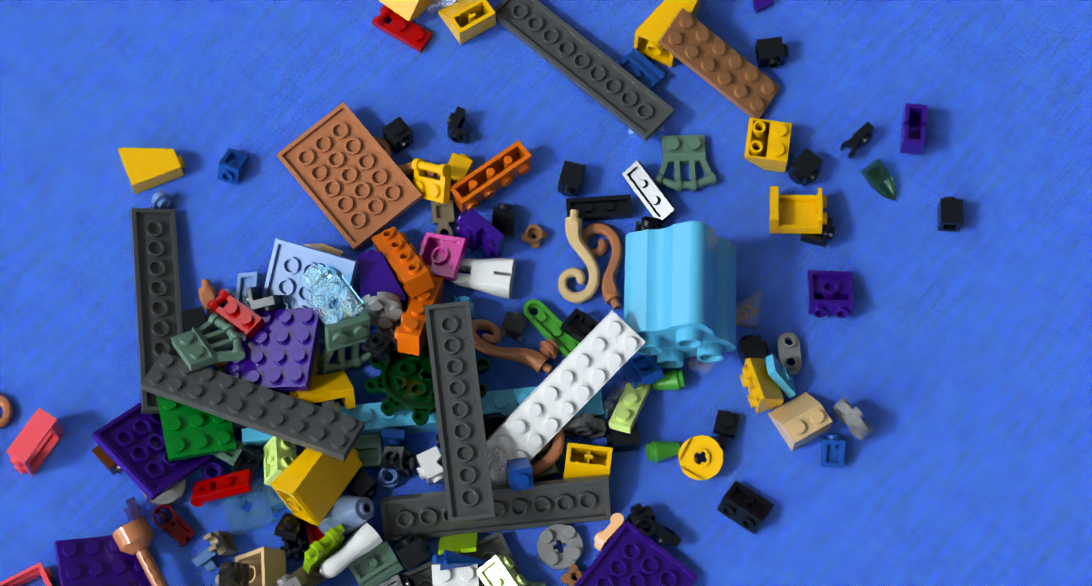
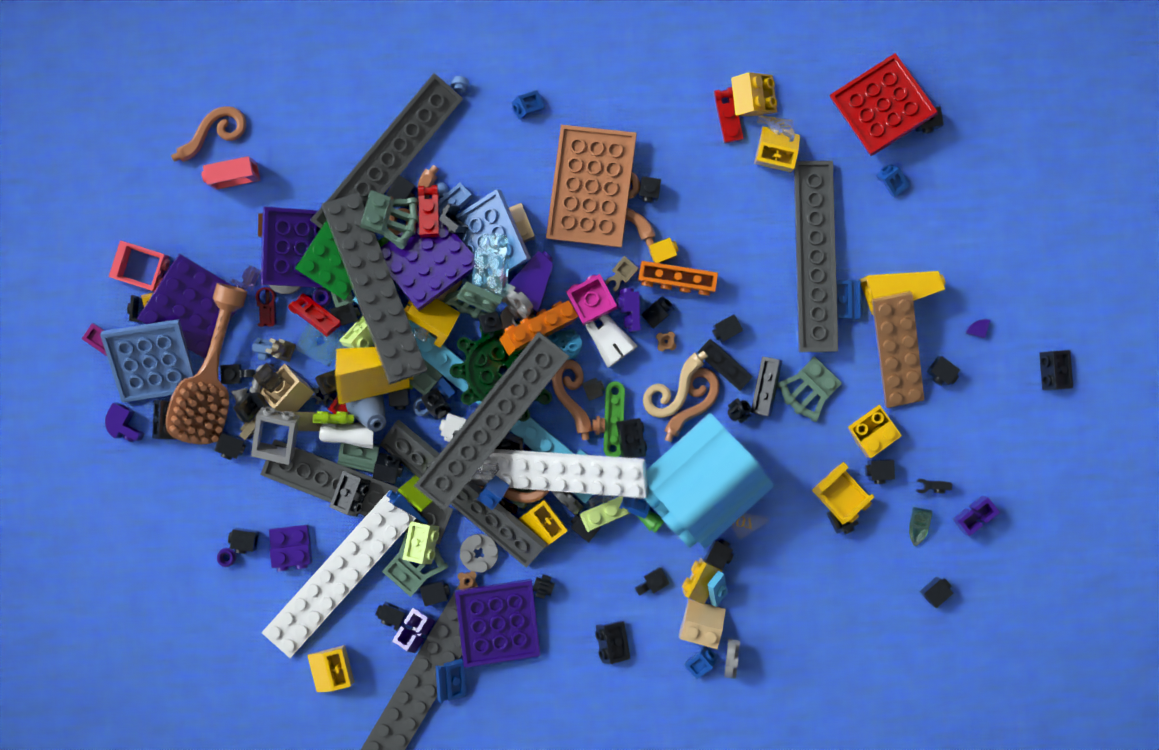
camera: 45 degrees right, 20 degrees up
(150, 166) = (475, 53): yellow slope -> none
(404, 262) = (561, 284): orange brick -> none
(430, 187) = (632, 248): yellow plate -> none
(455, 124) = (695, 215): black bracket -> none
(603, 537) = (510, 576): light nougat plate -> none
(661, 450) = (599, 557): bright green cone -> none
(663, 533) = (546, 609): black plate -> none
(706, 469) = (622, 577): yellow plate -> none
(789, 352) = (741, 576): light grey plate -> none
(830, 293) = (806, 566): dark purple plate -> none

